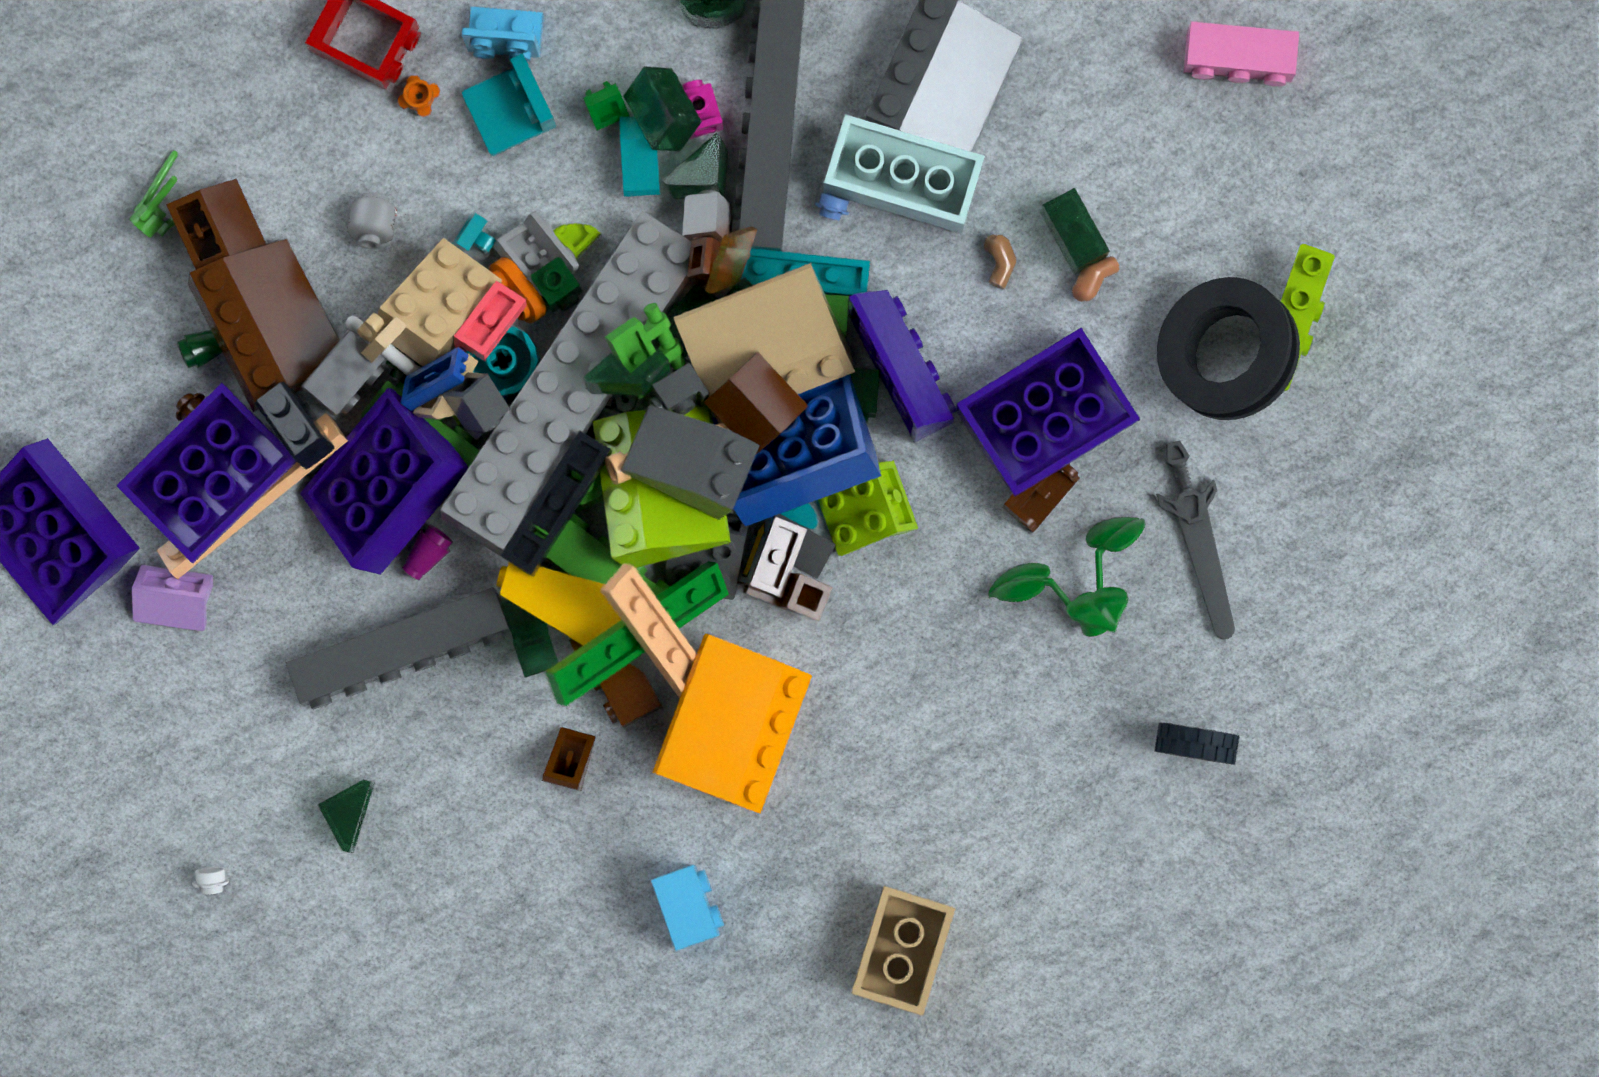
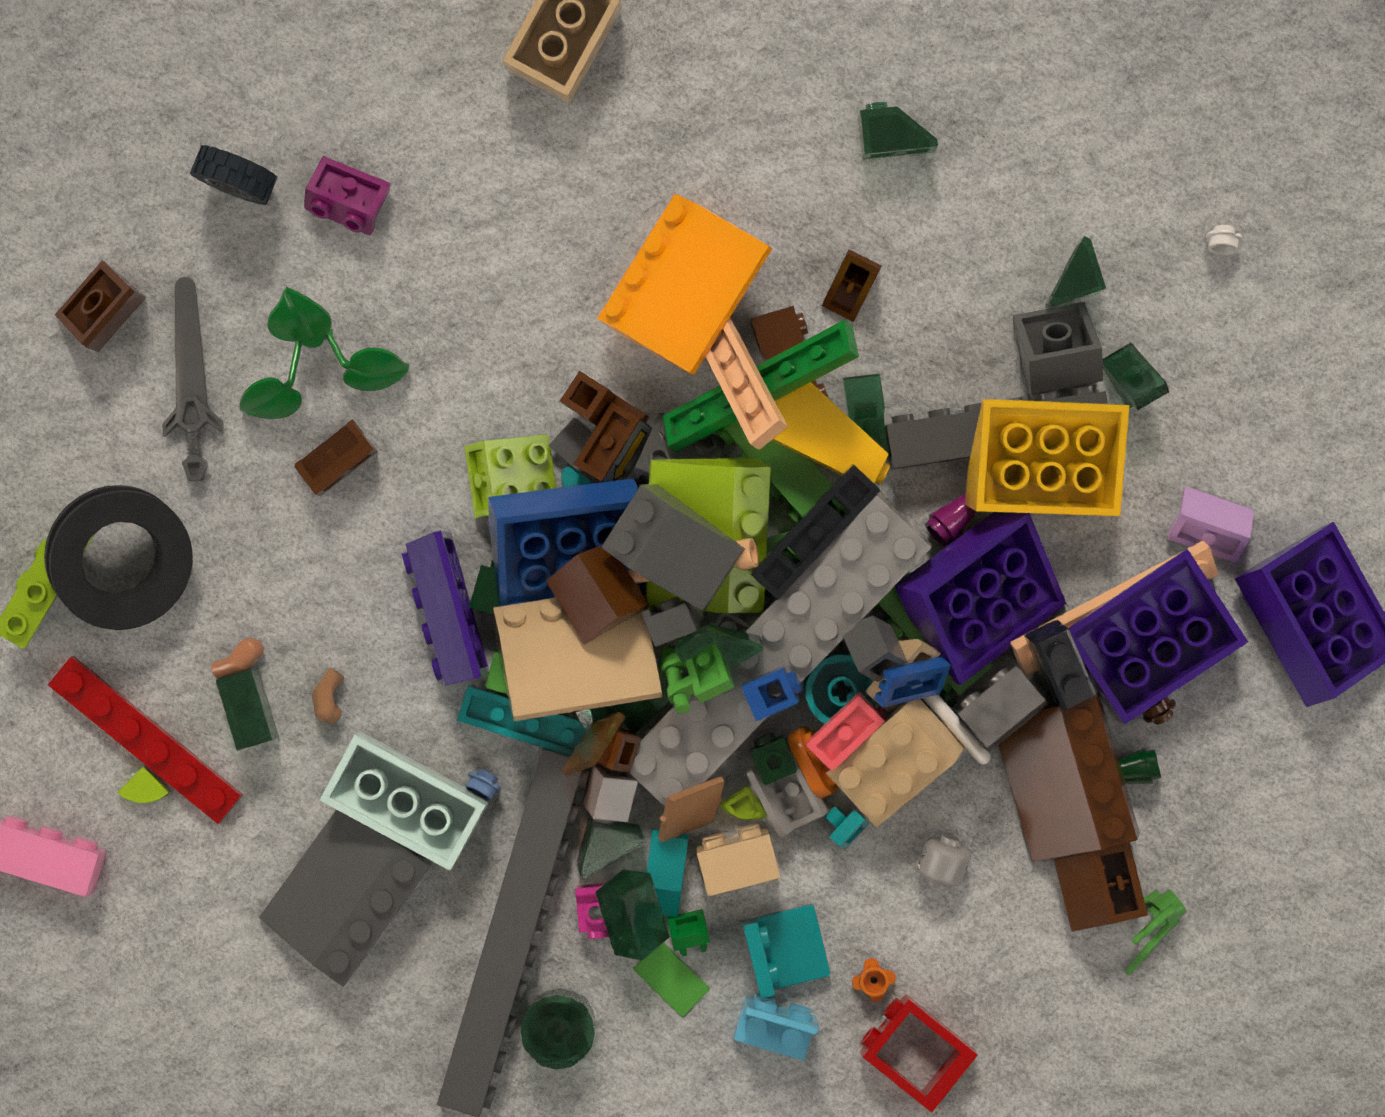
camera: 165 degrees left, 5 degrees up
(274, 725) = (1134, 377): none -> clear green slope
(343, 623) = (1048, 458): none -> yellow slope
(354, 739) = (1058, 348): none -> dark grey slope
(379, 335) = (958, 735): tan tile -> none
(559, 919) = (892, 133): none -> clear green slope
(570, 327) = (764, 704): none -> blue brick
(571, 180) = (737, 860): none -> tan brick
(612, 57) = (671, 979): none -> bright green sticker
(625, 219) = (691, 809): none -> medium nougat piece
(687, 907) = (765, 116): medium azure brick -> none
(1046, 412) = (311, 529): dark purple slope -> none
(1084, 749) = (345, 195): none -> magenta bracket
(1159, 138) = (144, 787): none -> lime tile
(1168, 184) = (145, 739): none -> red plate
(1304, 592) = (99, 307): none -> reddish brown slope

